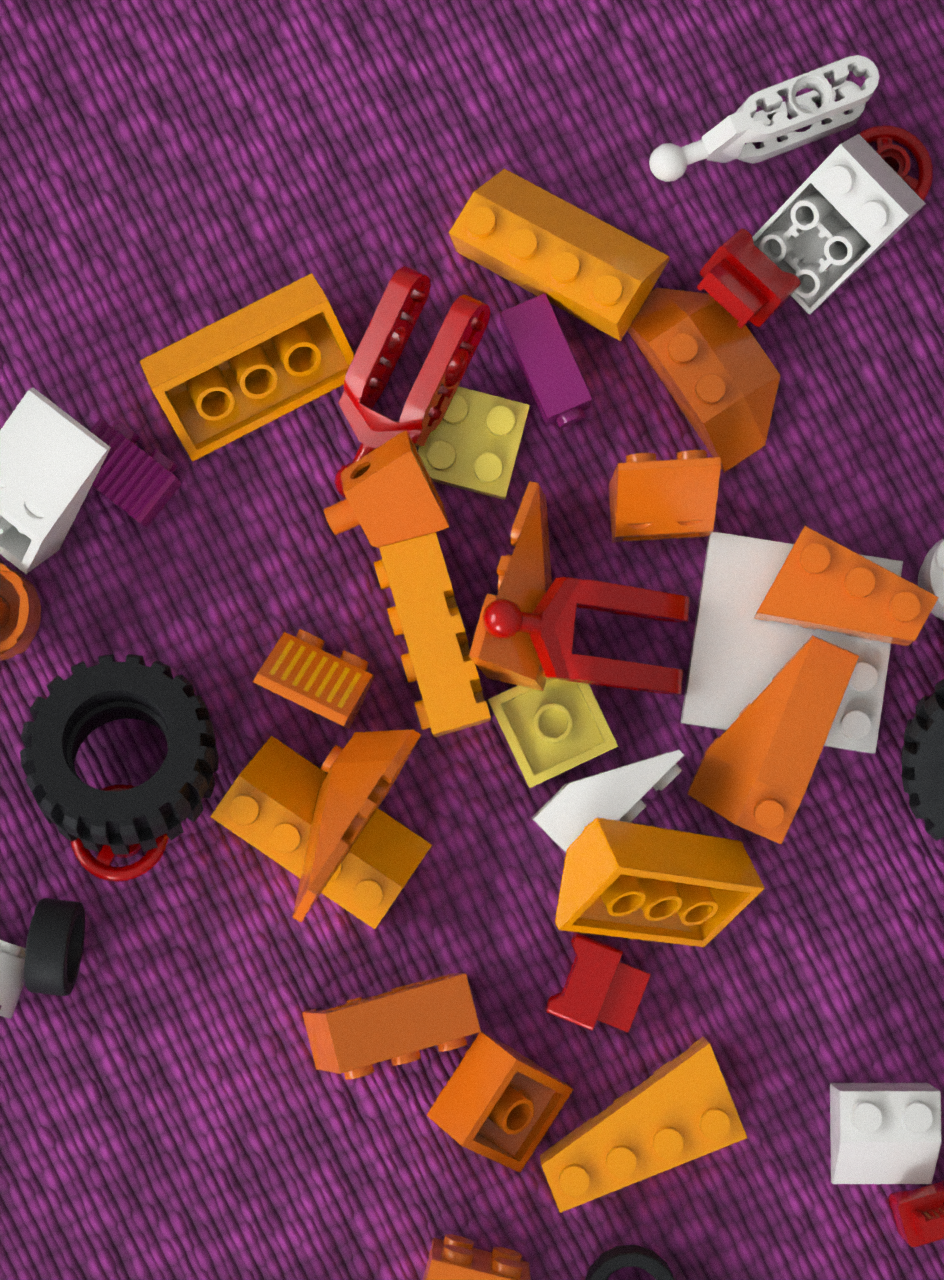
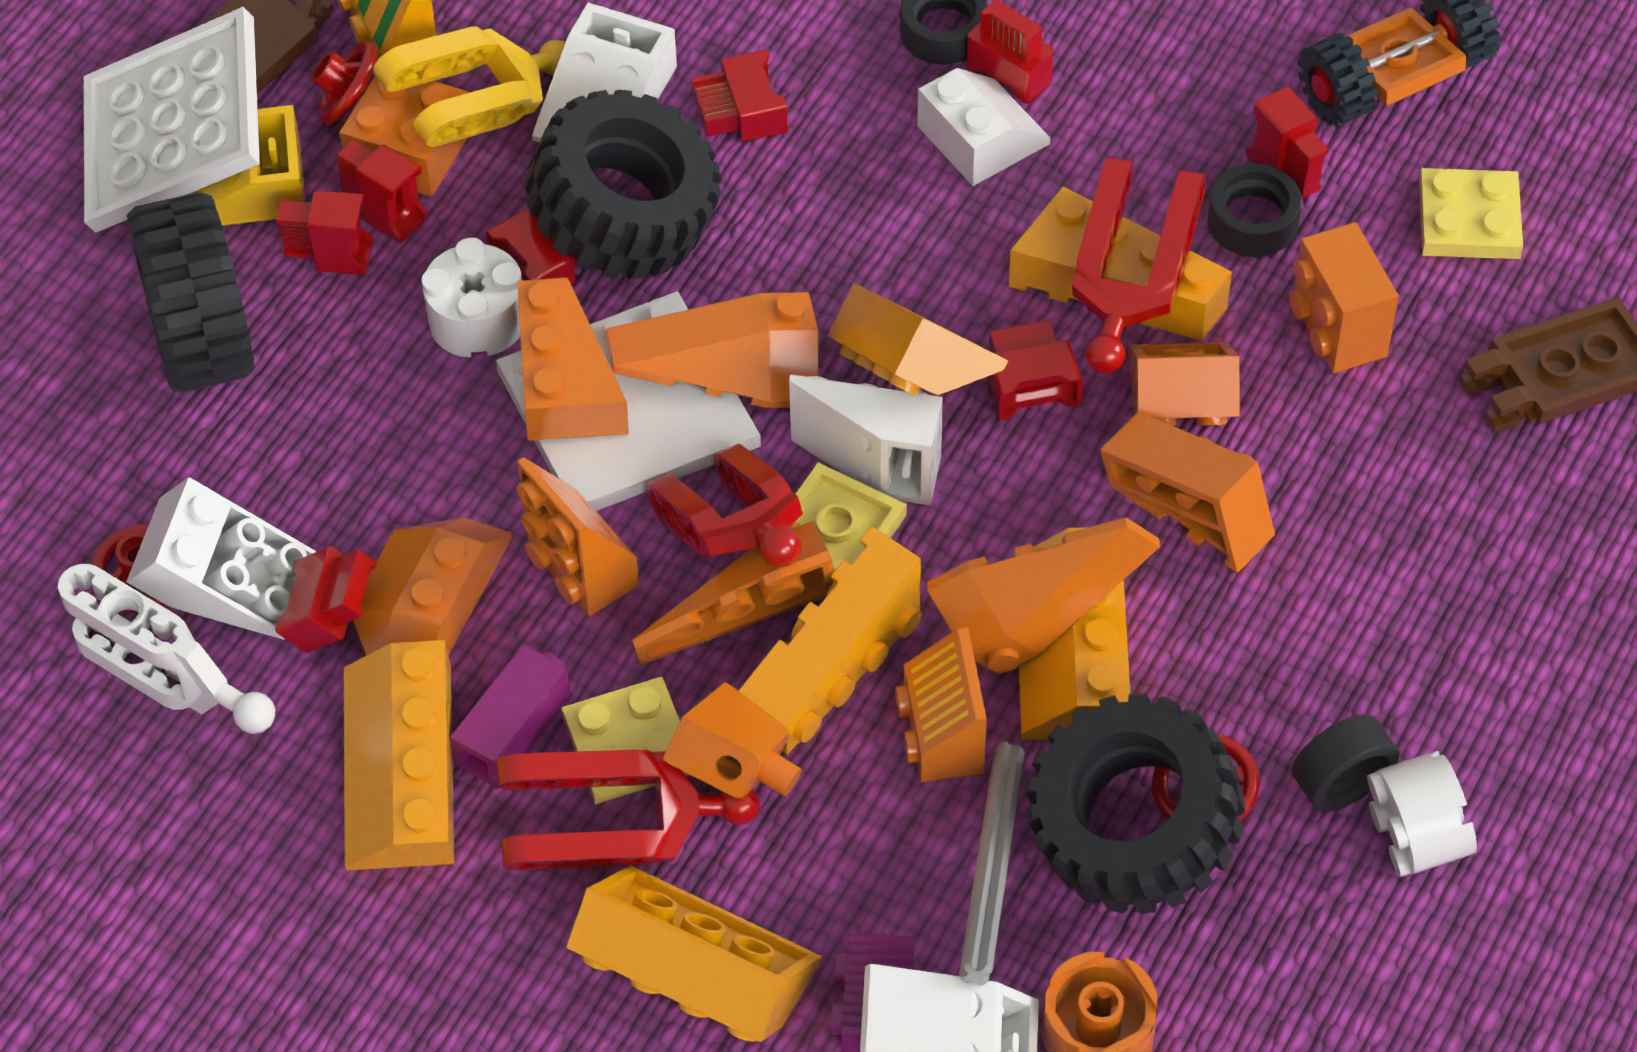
camera: 125 degrees left, 30 degrees down
(153, 617) = (992, 865): none -> light grey axle
(579, 1083) = (1125, 303): none -> red piece

